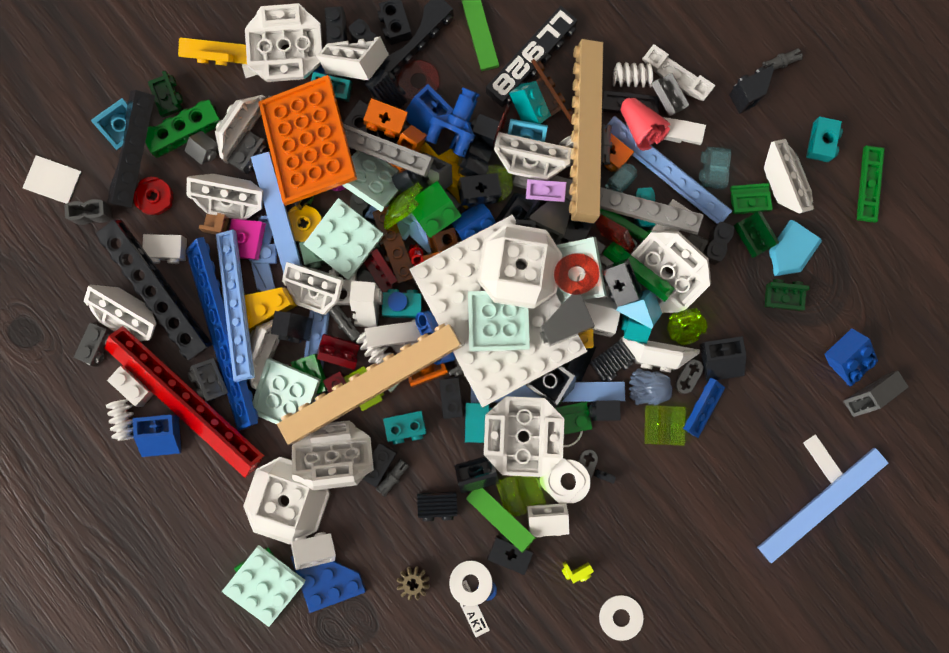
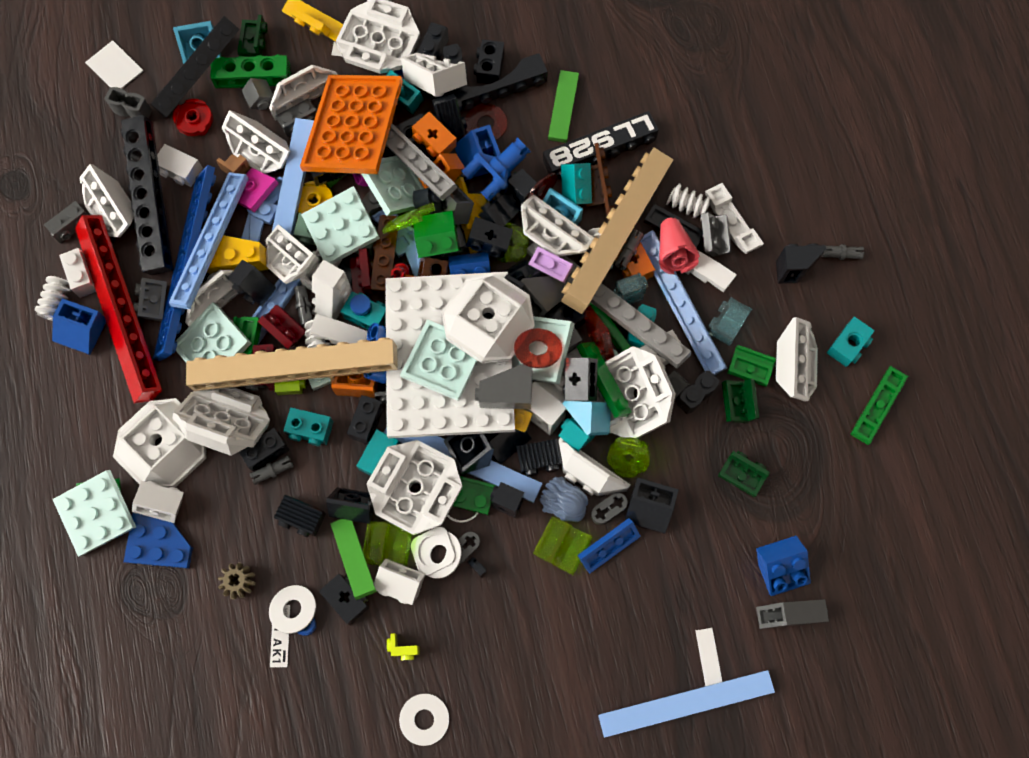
camera: 25 degrees right, 10 degrees down
(794, 249) = (772, 433): medium azure tile -> none

